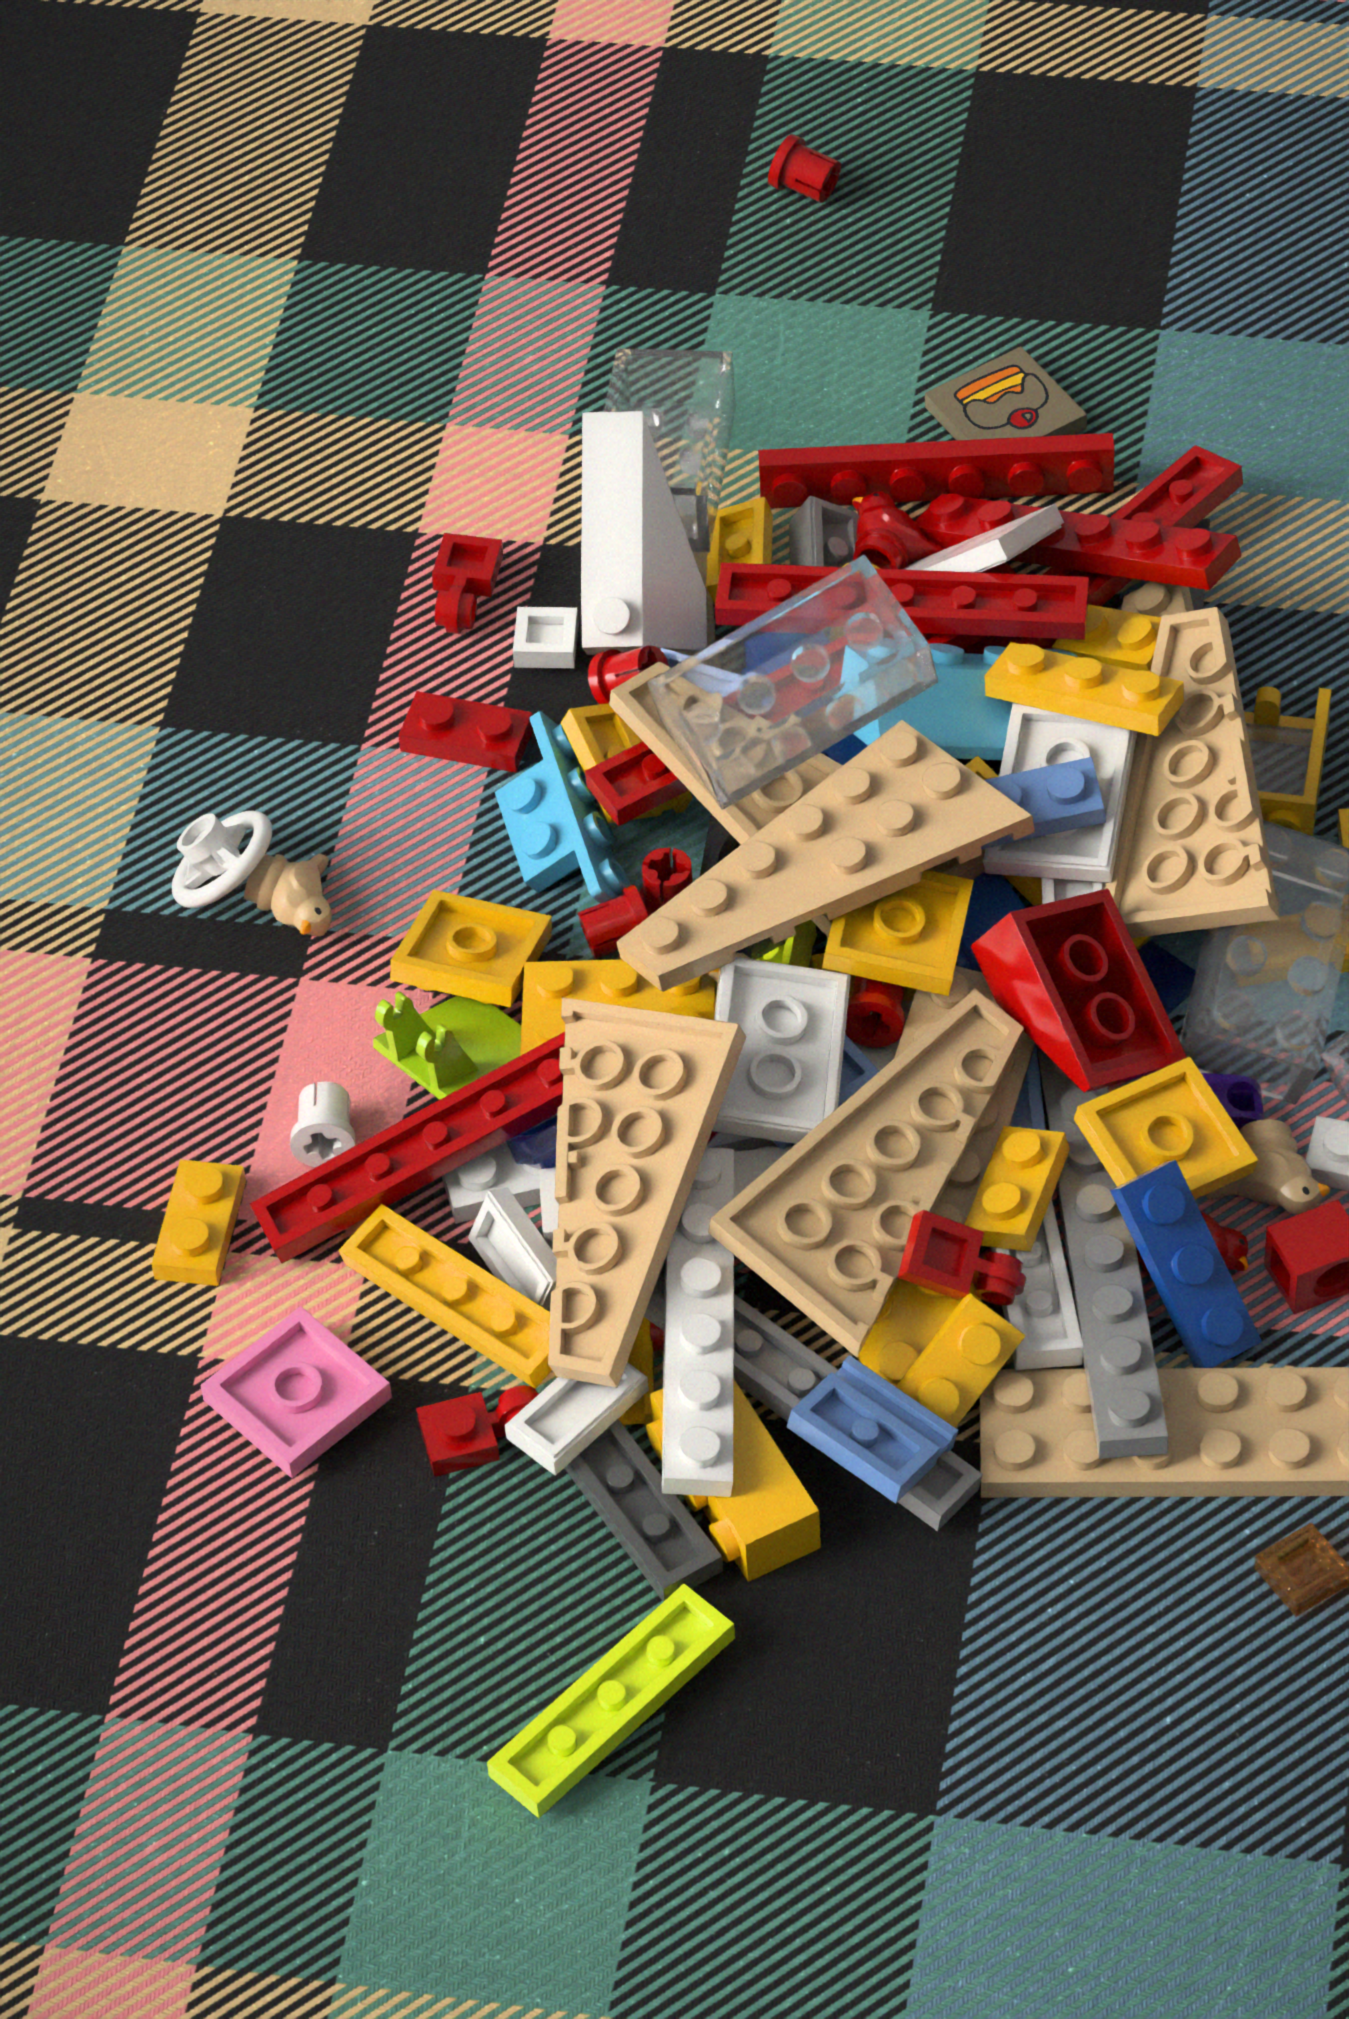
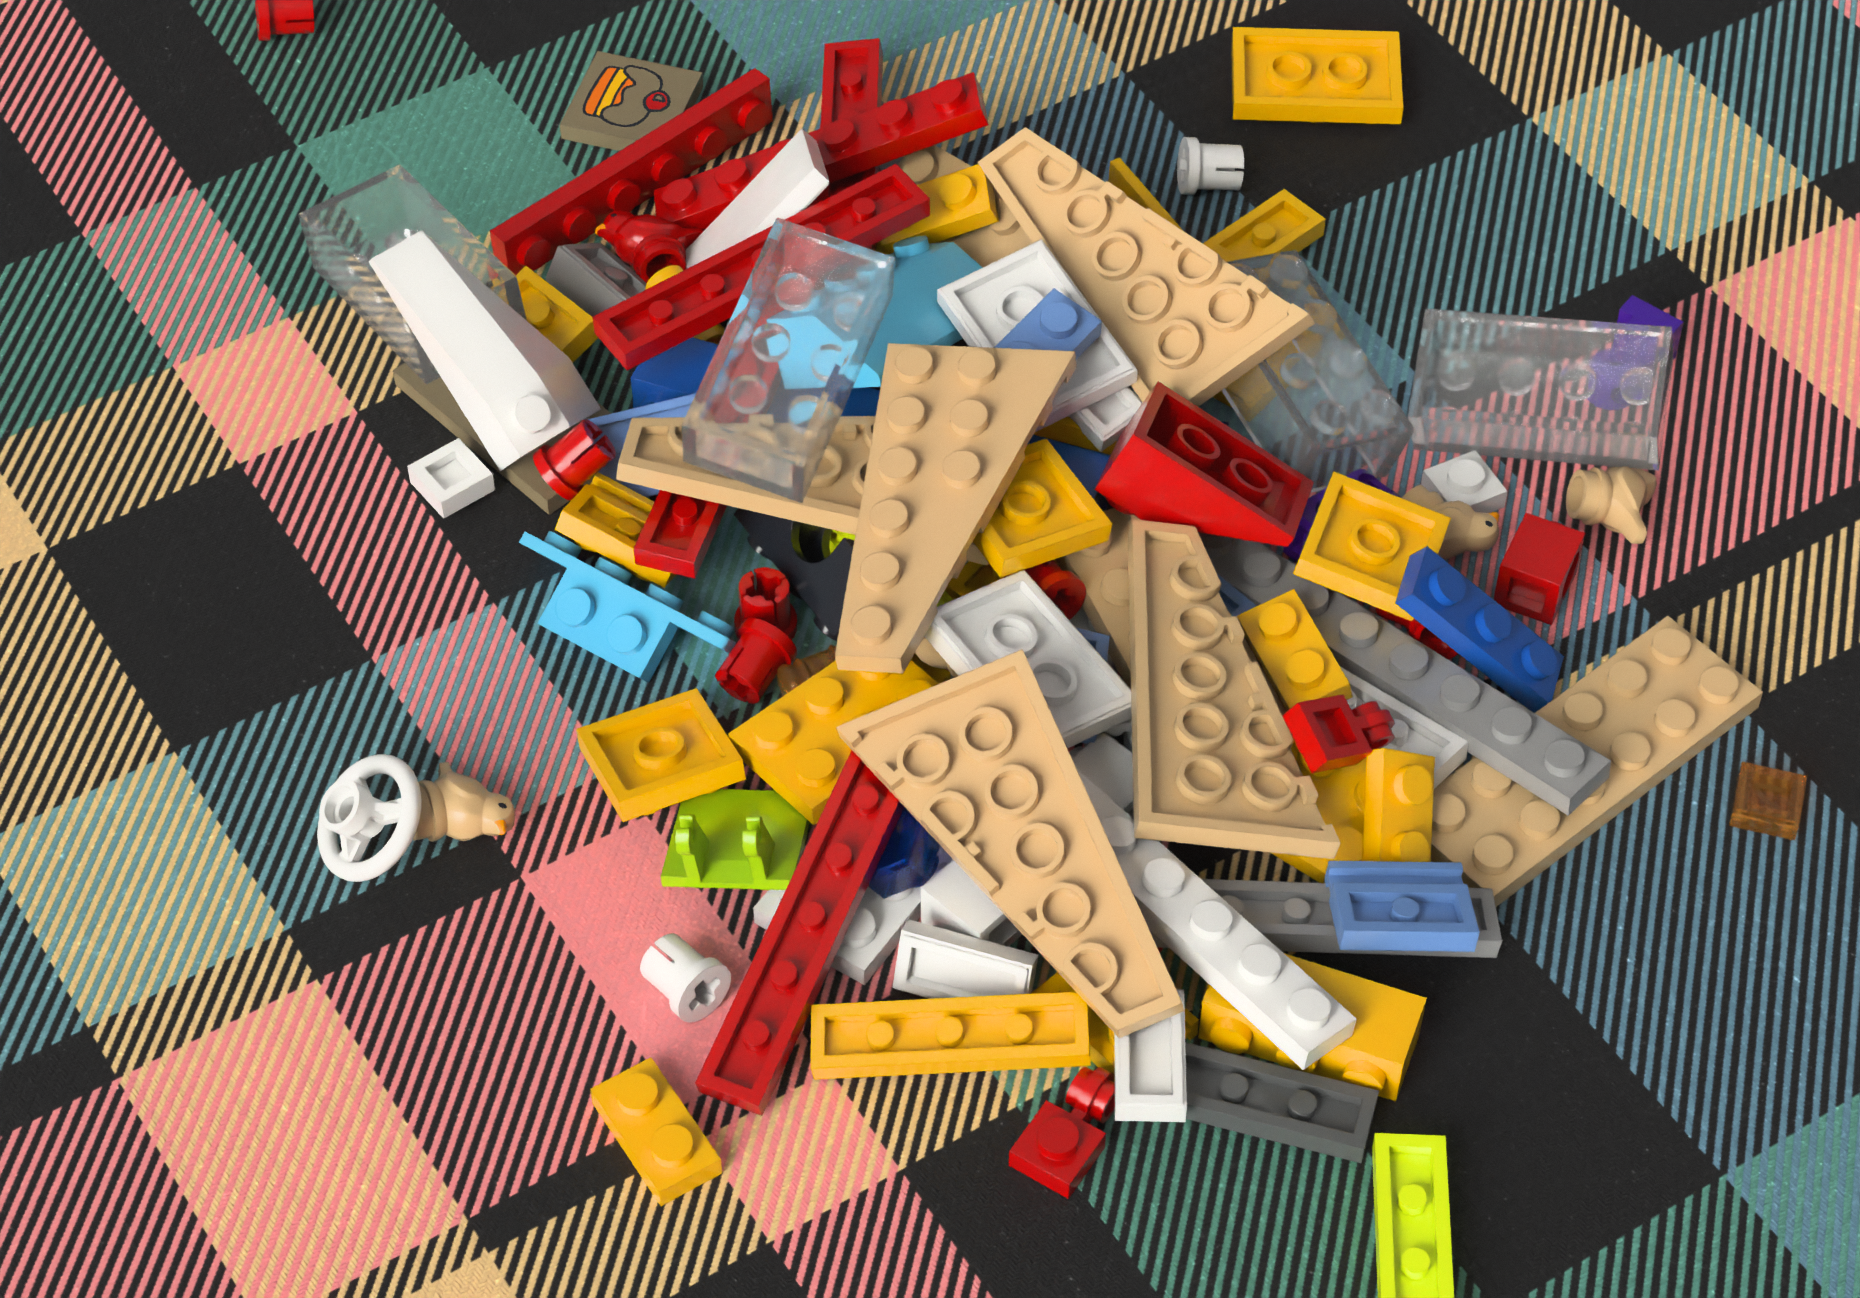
camera: 45 degrees left, 0 degrees up
(296, 1391) = (896, 1209): bright pink plate -> none
(462, 572) = (331, 465): red plate -> none
(466, 731) = (457, 592): red plate -> none
(1084, 688) = (987, 243): yellow plate -> none

